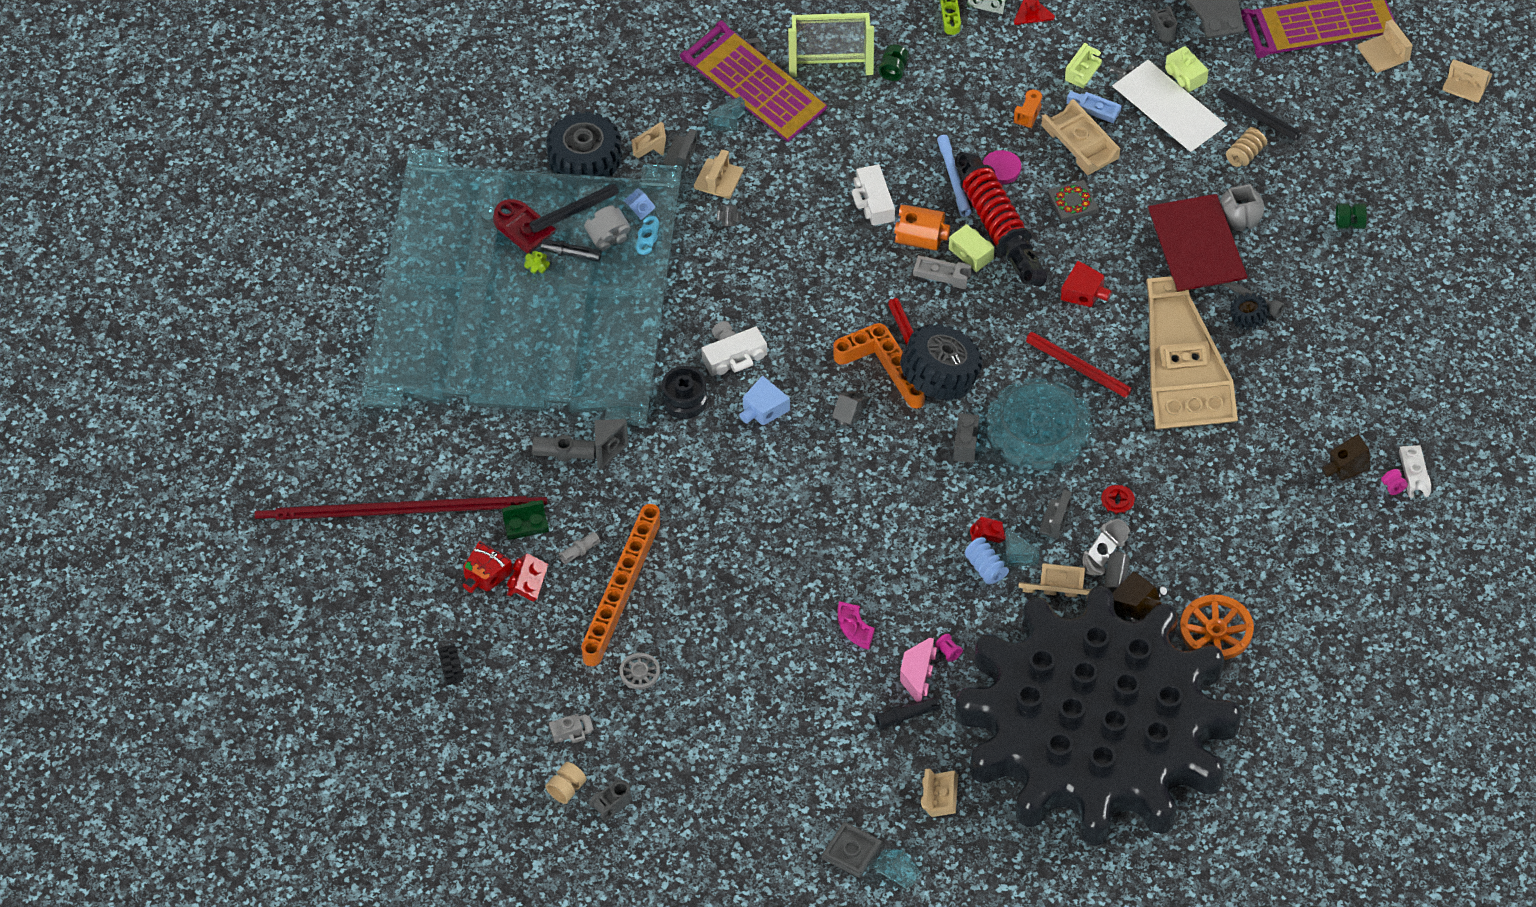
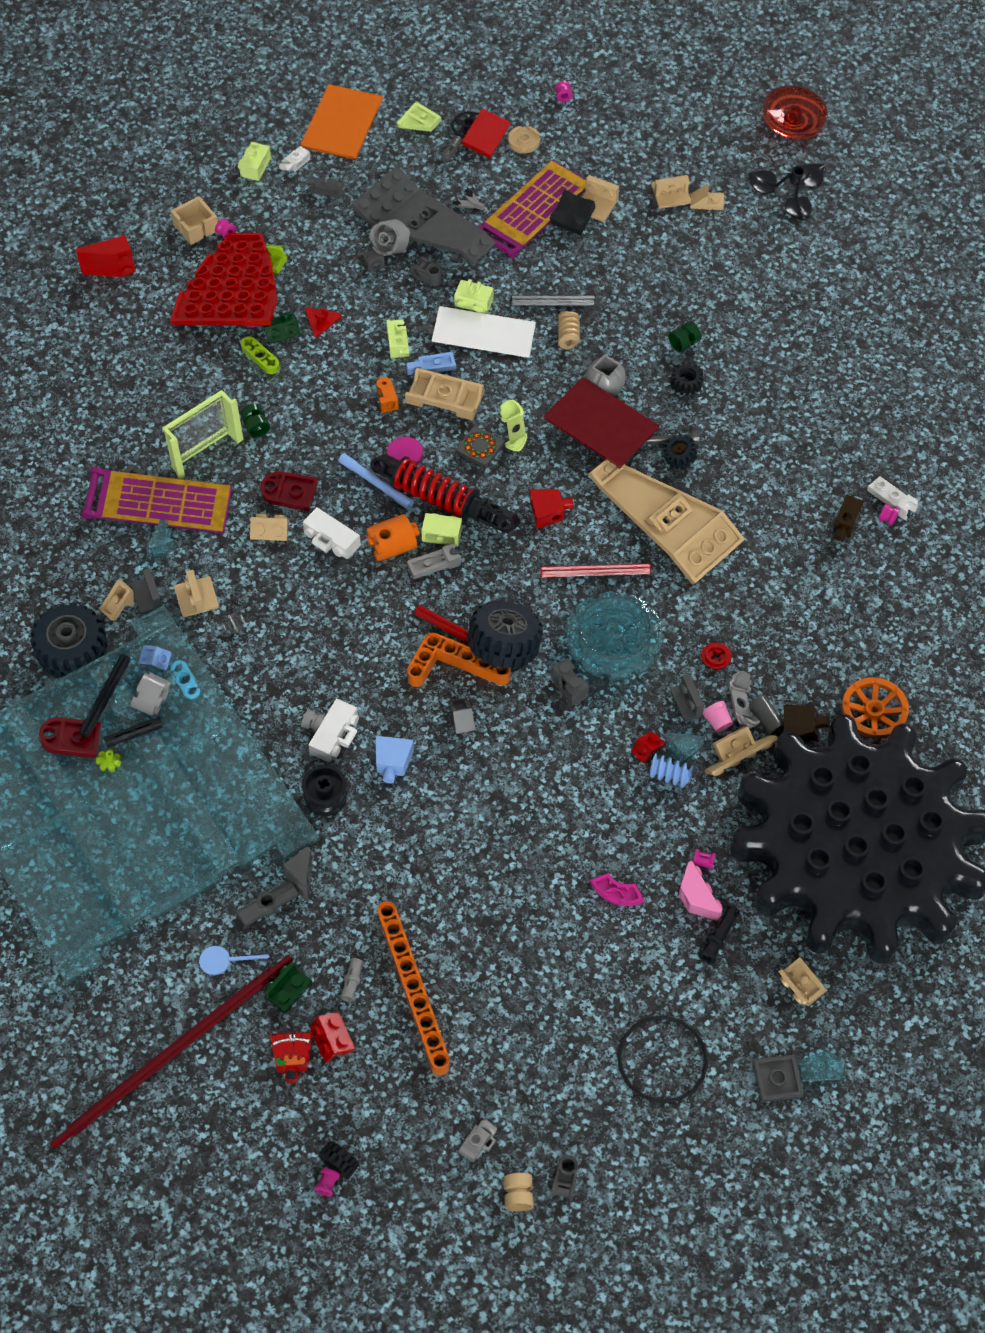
camera: 40 degrees left, 5 degrees up
(430, 676) = (326, 1182): none -> dark pink bush
(492, 465) = (216, 960): none -> light blue piece
(640, 671) = (488, 1050): light grey wheel -> none
(781, 809) = (653, 1098): none -> black piece
(826, 159) = (269, 528): none -> tan bracket
(874, 140) = (290, 490): none -> dark red tile
(1070, 546) = (718, 716): none -> bright pink piece
(1125, 191) = (513, 415): none -> yellowish green piece
(1318, 263) = (684, 386): none -> black tyre
(1349, 46) = (572, 212): none -> black brick
(1494, 107) = (706, 200): none -> tan slope

